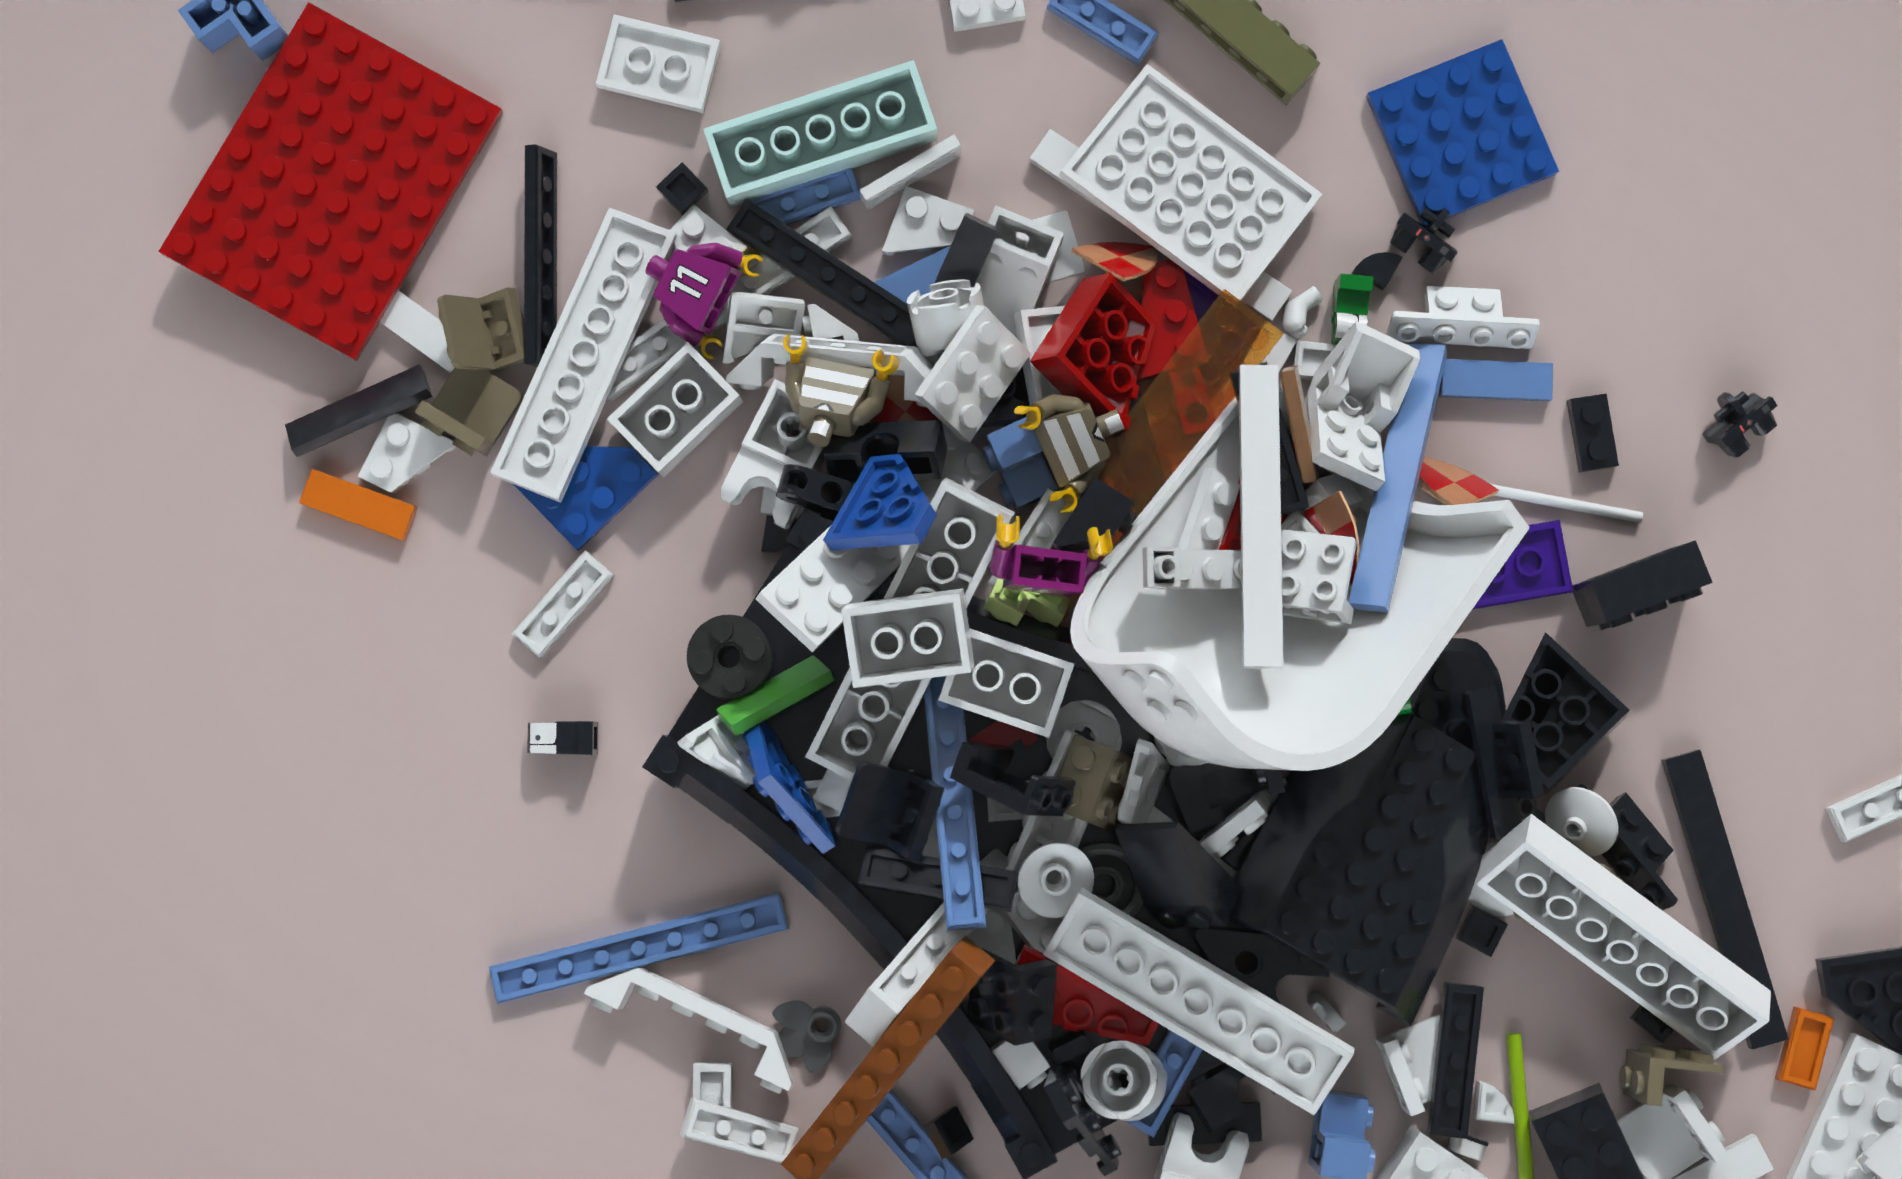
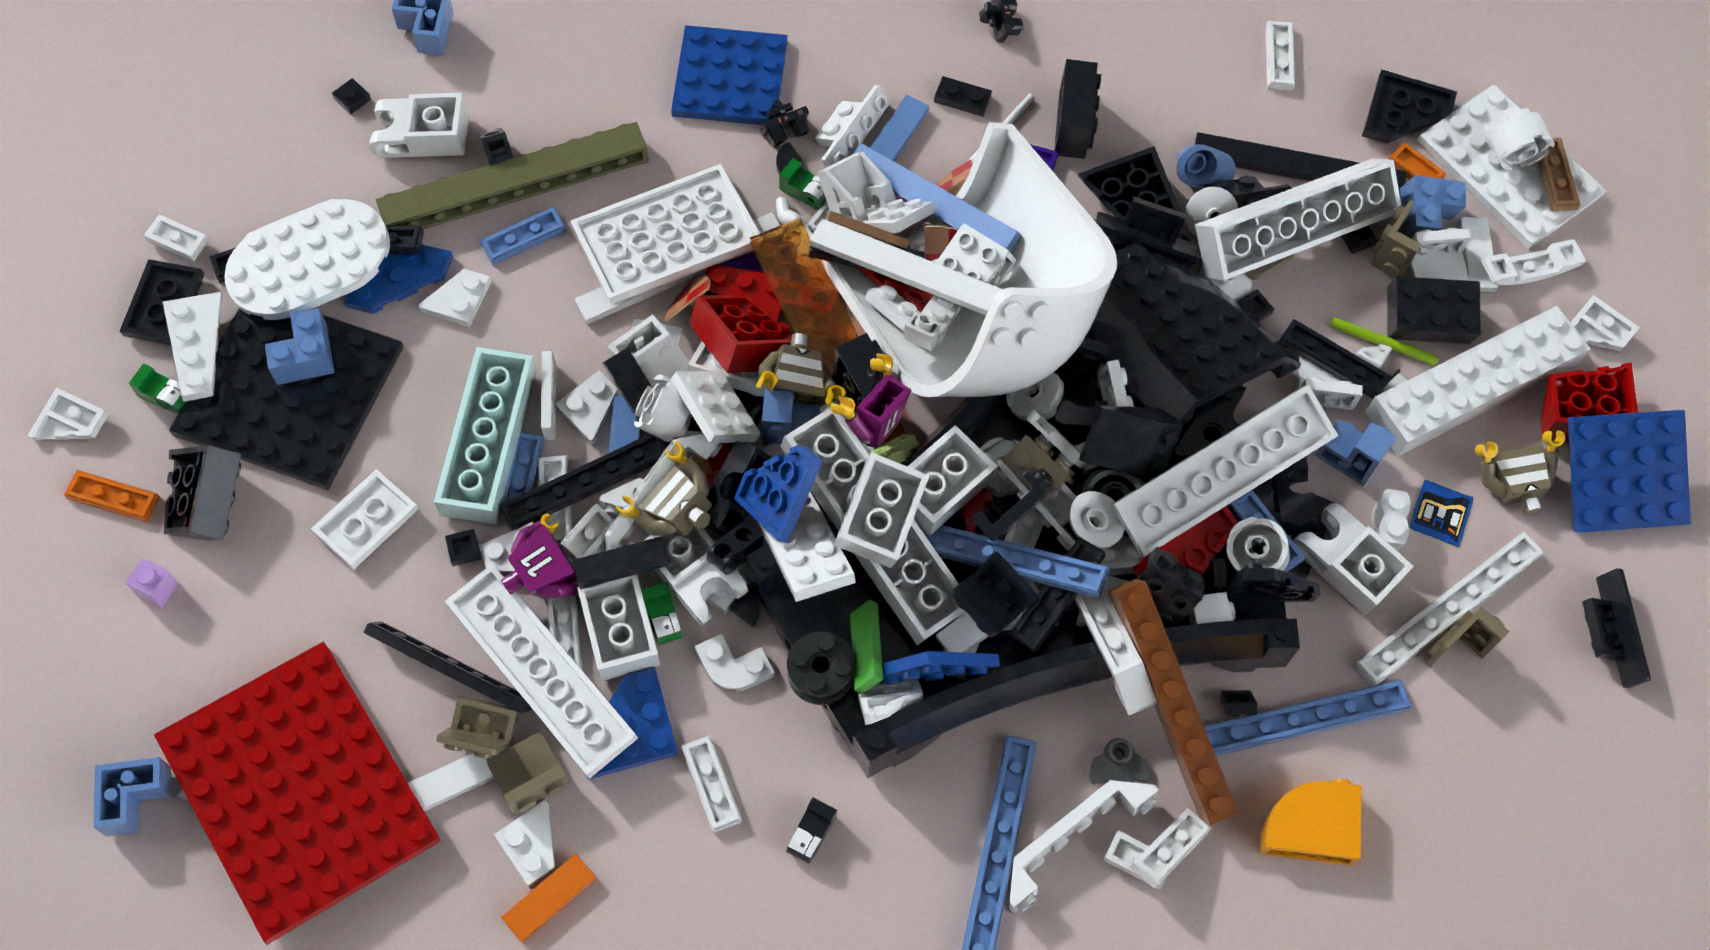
camera: 65 degrees left, 20 degrees down
(358, 410) = (478, 859): black tile -> none
(694, 555) = (733, 673): none -> white plate
(717, 449) = (662, 613): none -> green leg
(737, 373) = (620, 562): none -> black tile
(1648, 779) = (1204, 165): none -> medium blue piece
(1749, 1083) = (1433, 200): none -> medium blue brick

